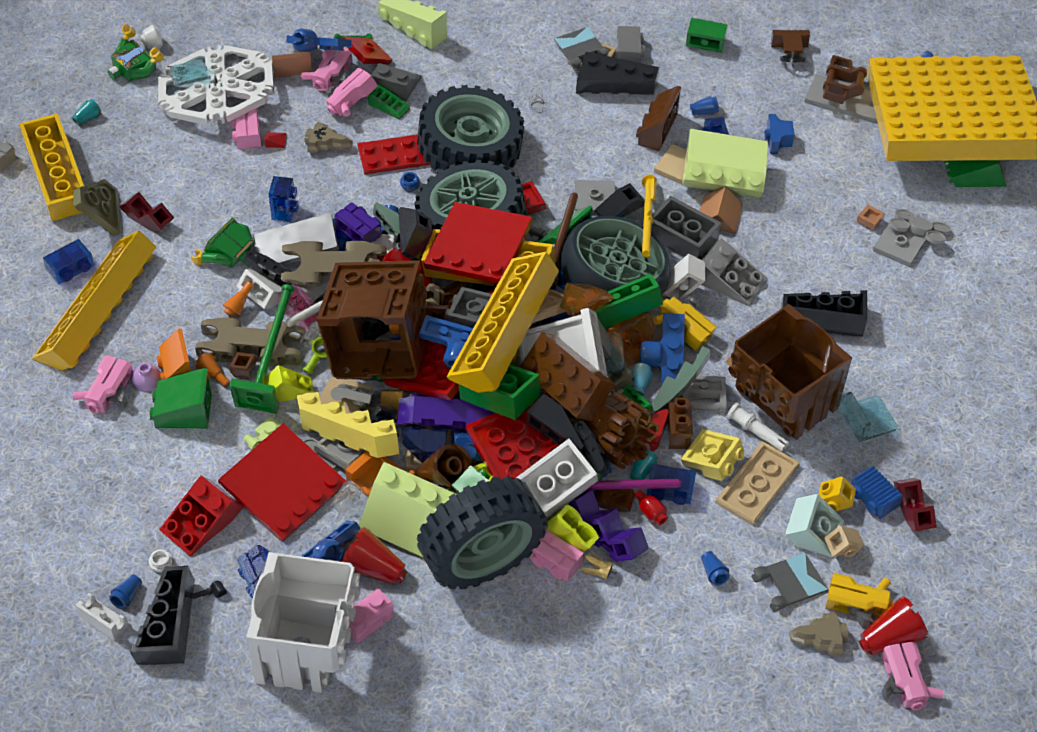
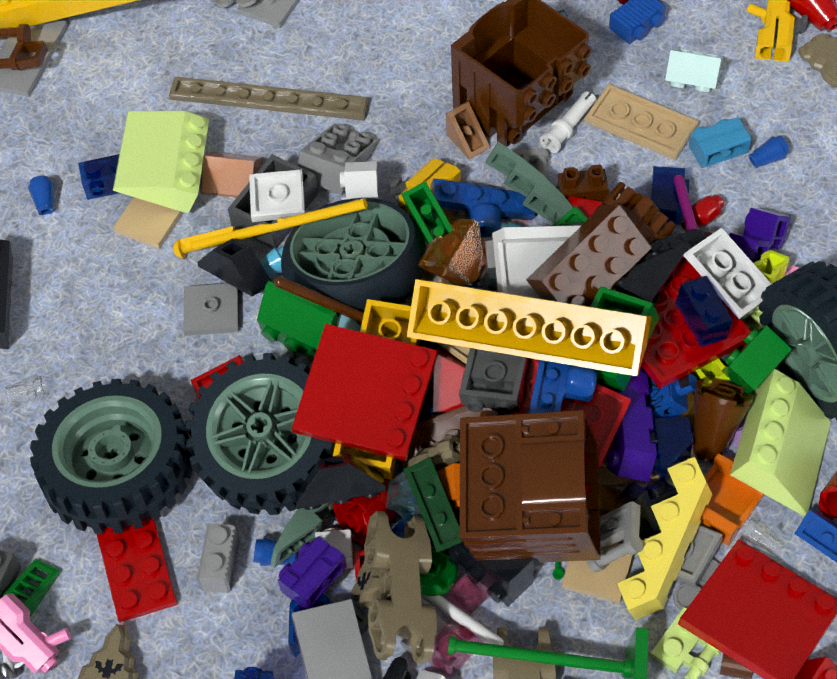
camera: 90 degrees left, 5 degrees up
(288, 383) = (597, 634): neon yellow slope -> none
(310, 335) = (499, 615): clear cone -> none
(316, 356) = (528, 600): lime bar -> none
(388, 189) = (218, 558): none -> light grey brick
(409, 181) = (189, 530): blue plate -> none
(520, 453) = (703, 311): none -> clear blue brick
(603, 567) = (797, 253): pearl gold piece -> none
(659, 119) = (74, 235): reddish brown slope -> none
(677, 221) = (276, 195): none -> white tile
(714, 454) = (619, 155): light yellow plate -> none
(726, 530) = (719, 142): none -> dark azure brick
(778, 133) = (95, 115): blue brick -> none
(794, 238) = (269, 98): none -> dark tan tile
(794, 579) = (764, 85): dark grey flag -> none
(834, 313) = (393, 51): black wedge -> none
(838, 493) = (652, 37): yellow brick -> none
(847, 546) = (715, 38): tan brick -> none
(870, 217) = (232, 26): nougat plate -> none

